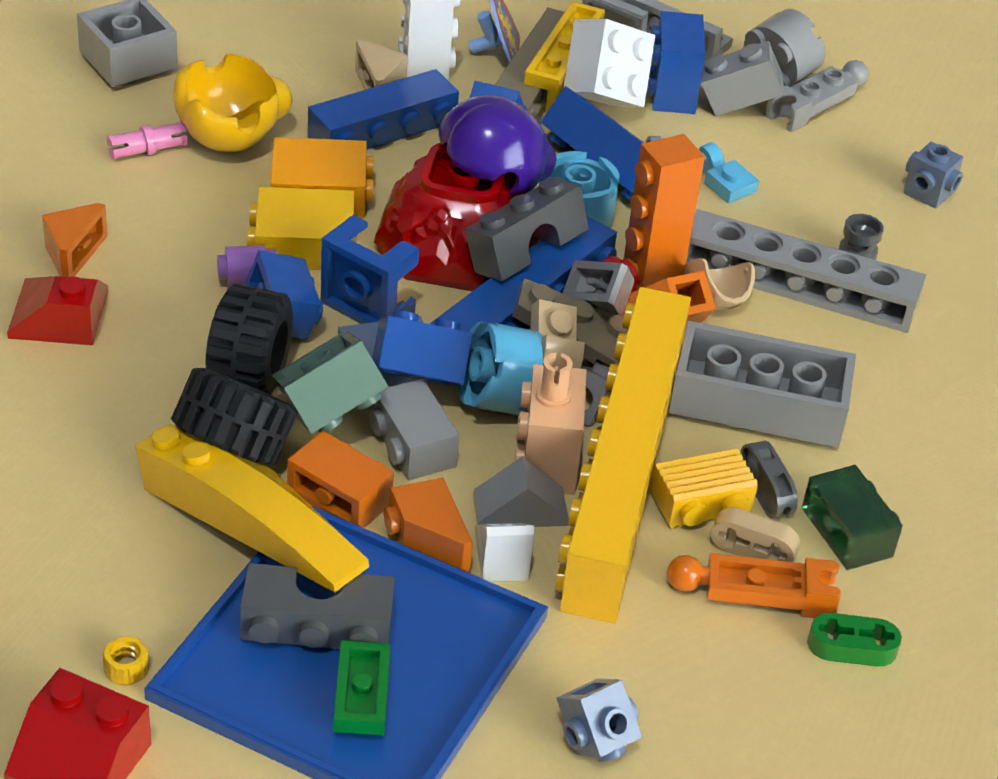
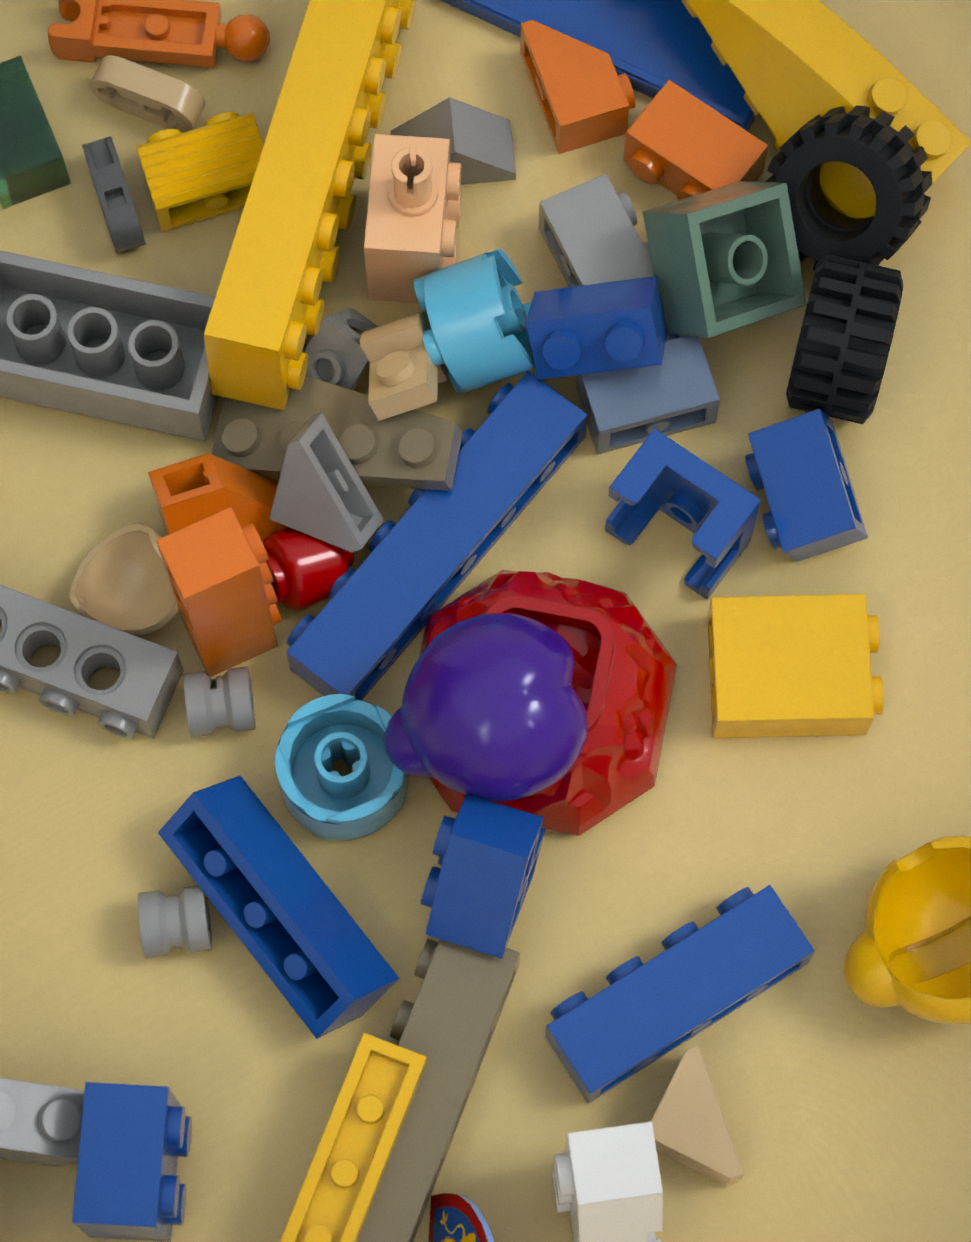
camera: 175 degrees left, 30 degrees up
(237, 263) = (870, 567): medium lavender brick -> none
(324, 165) = (775, 801): light orange brick -> none
(502, 237) = (437, 586): dark grey arch -> none
(504, 551) = (480, 56): white slope -> none
(609, 62) = (265, 1088): white brick -> none
(728, 179) = (70, 889): medium azure plate -> none

